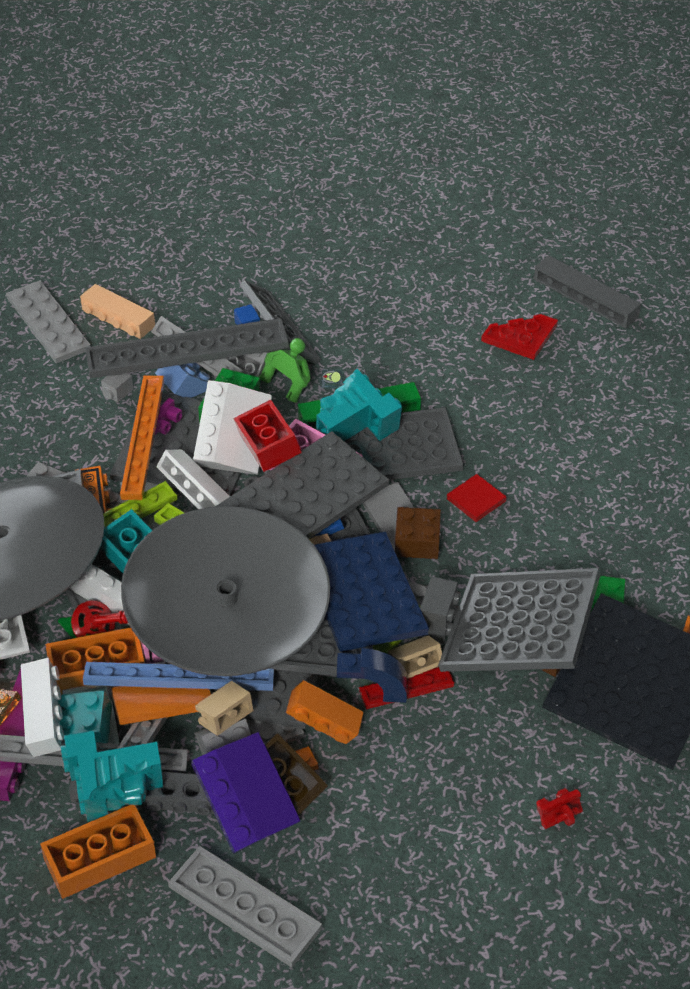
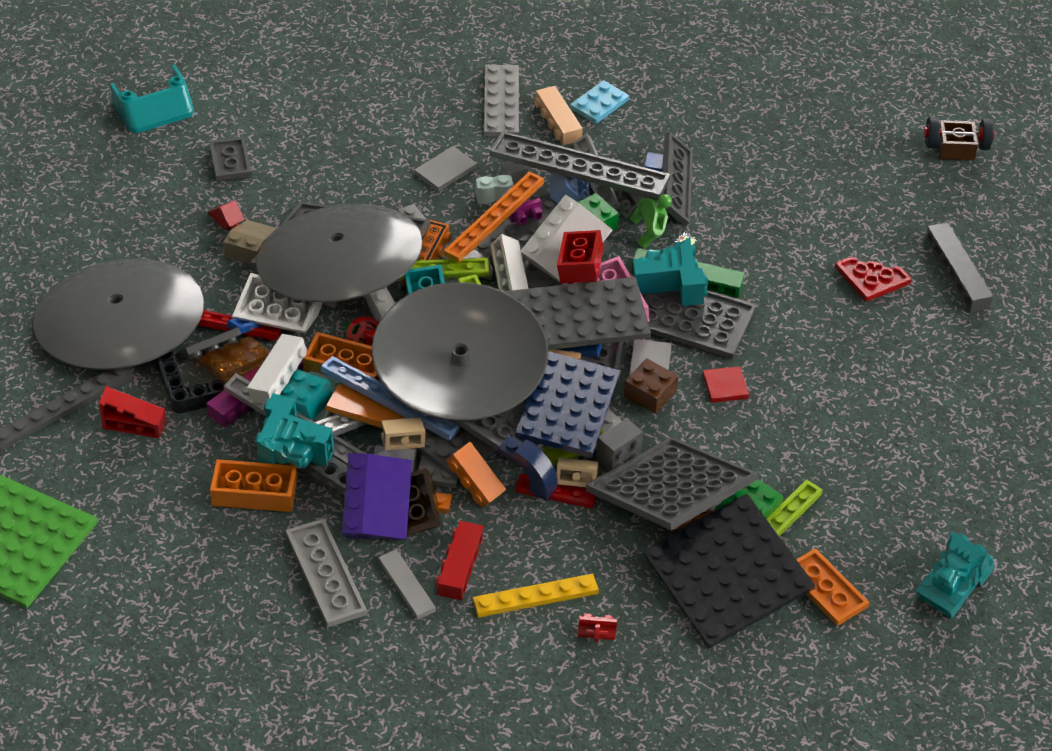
camera: 30 degrees right, 0 degrees up
(43, 412) = (445, 168): none -> light grey tile
(109, 411) = (492, 189): none -> light aqua brick
(145, 282) = (599, 102): none -> medium azure plate
(337, 870) = (407, 584): none -> light grey tile
(374, 813) = (460, 560): none -> red brick
(471, 809) = (535, 595): none -> yellow plate
(496, 177) = (958, 138): none -> brick
(635, 580) = (794, 506): none -> lime plate

